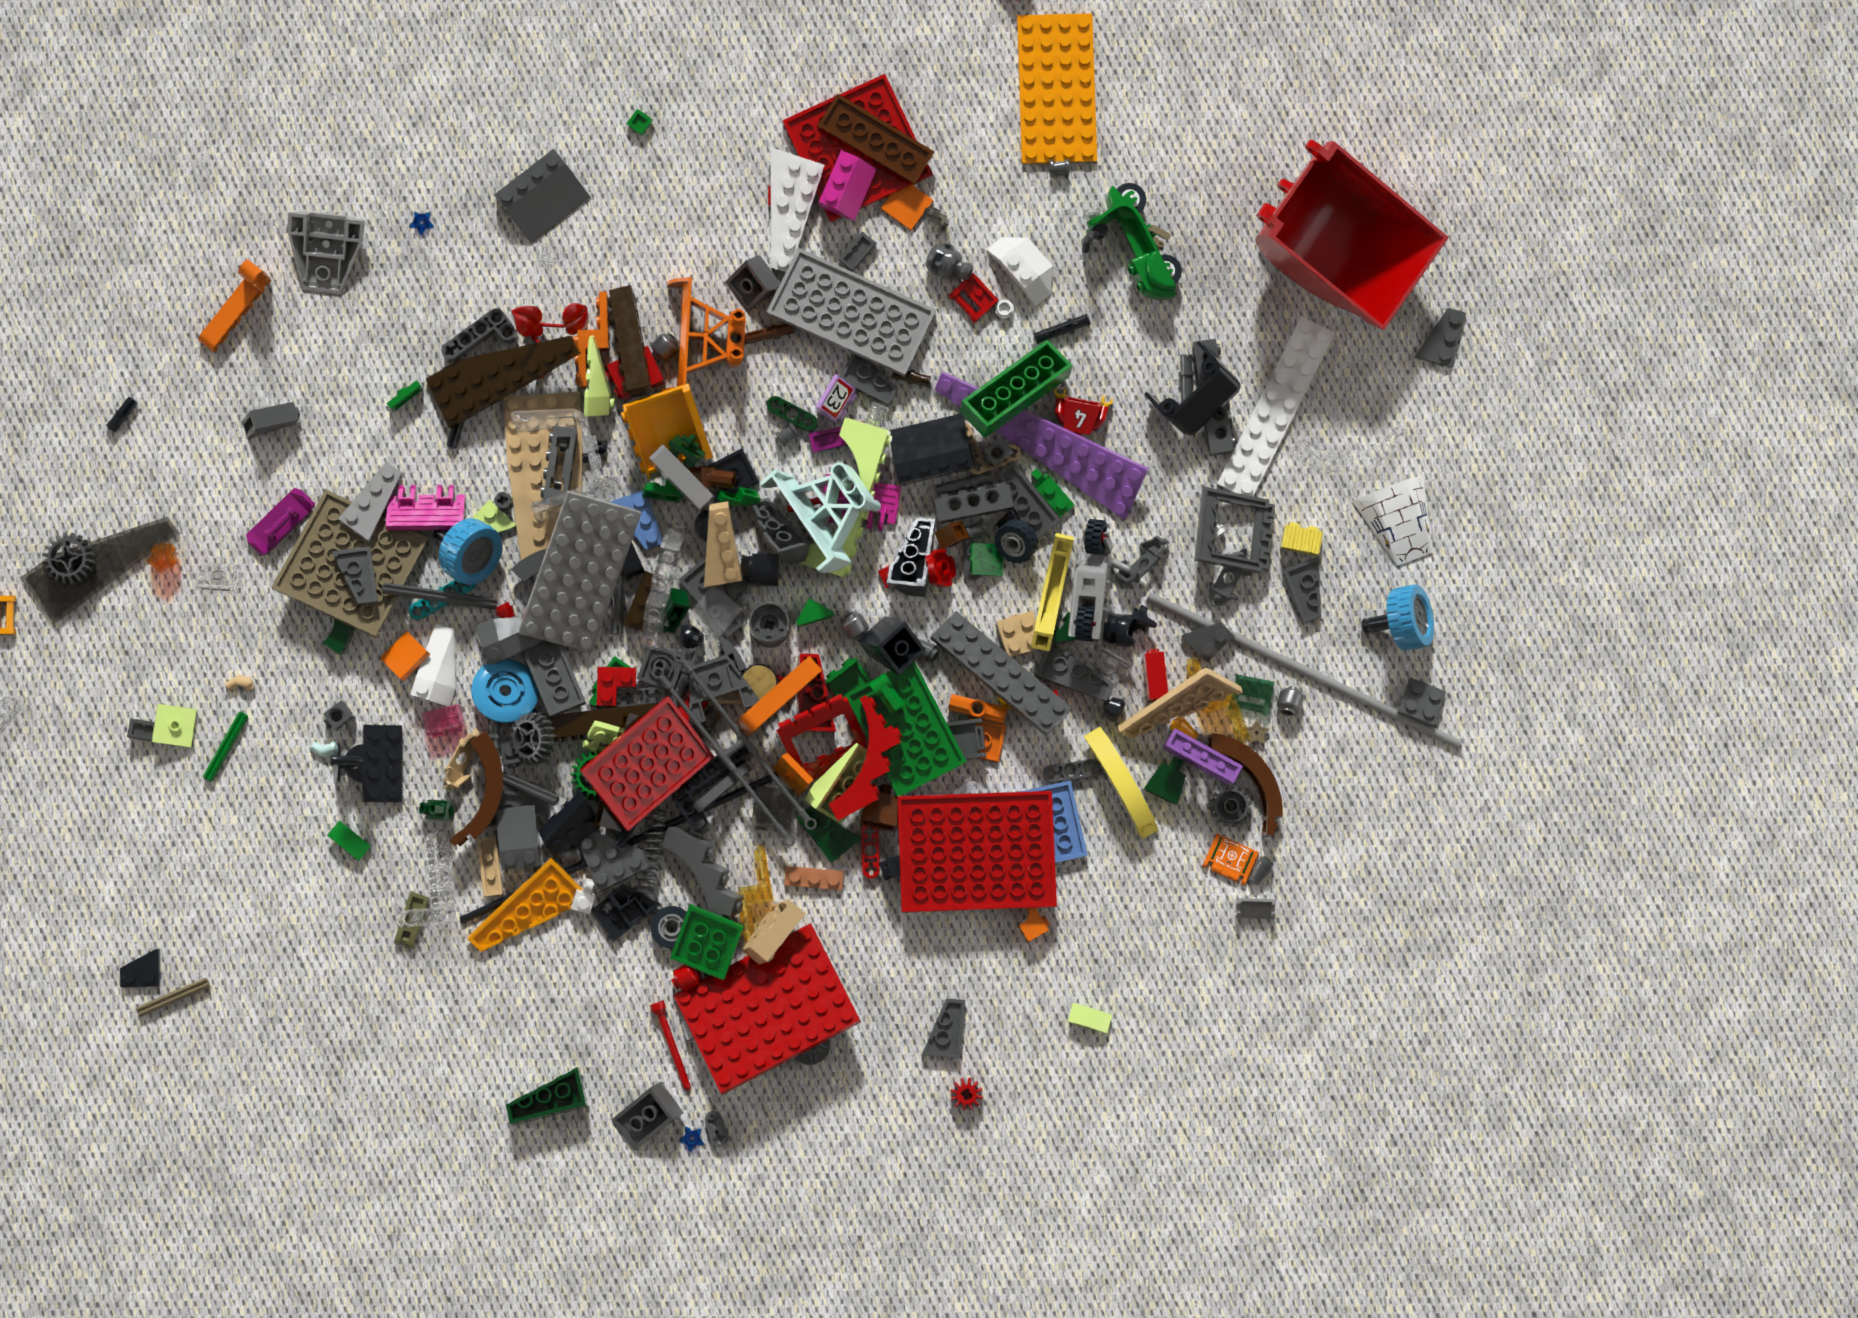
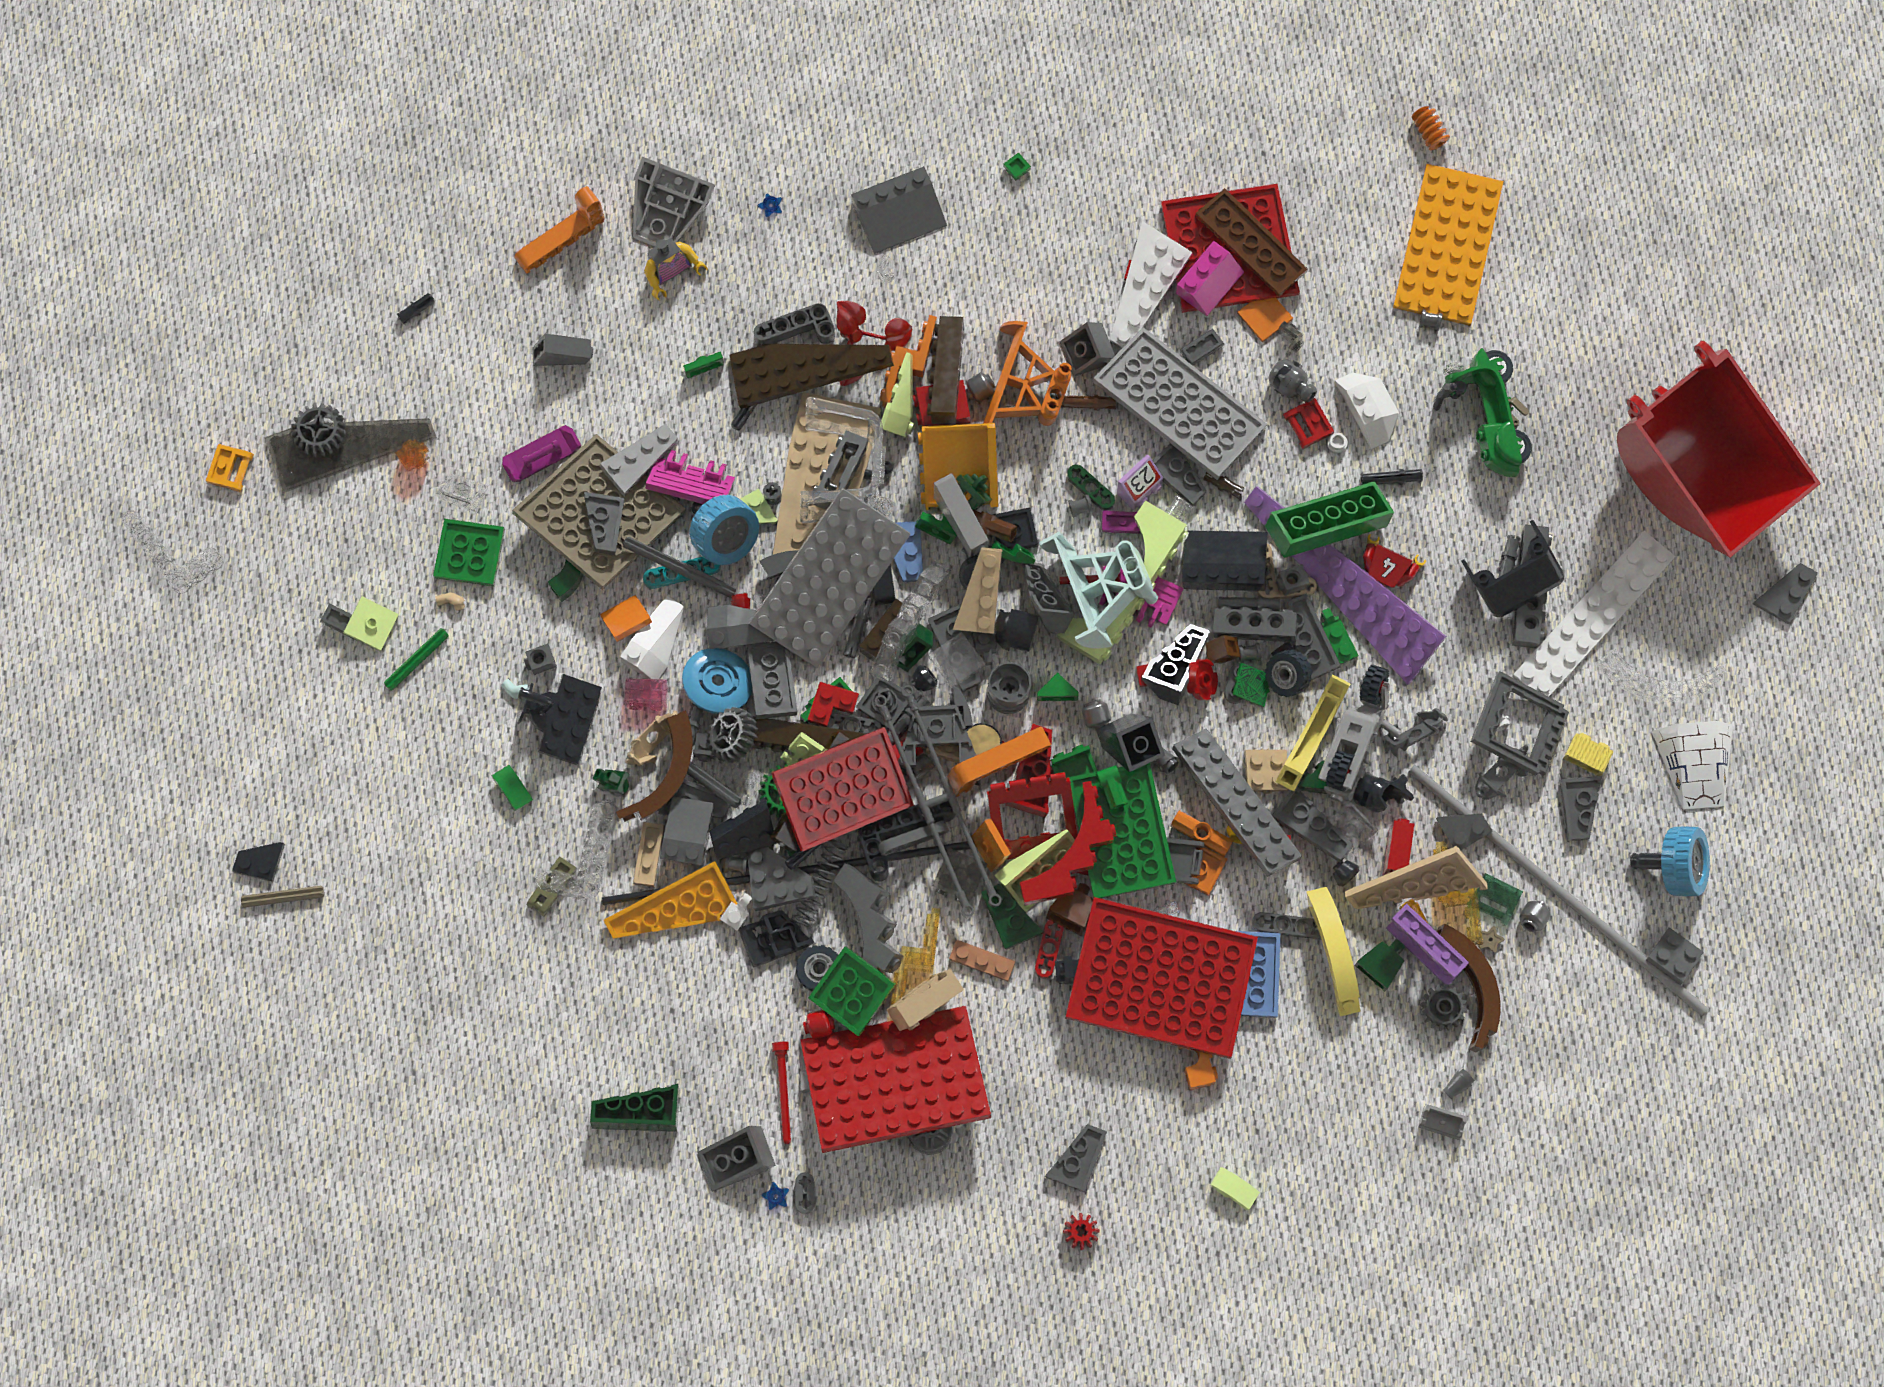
camera: 20 degrees right, 10 degrees down
(243, 633) = (469, 552): none -> green plate
(341, 307) = (668, 261): none -> torso
(1230, 858) = (1429, 1063): orange piece -> none

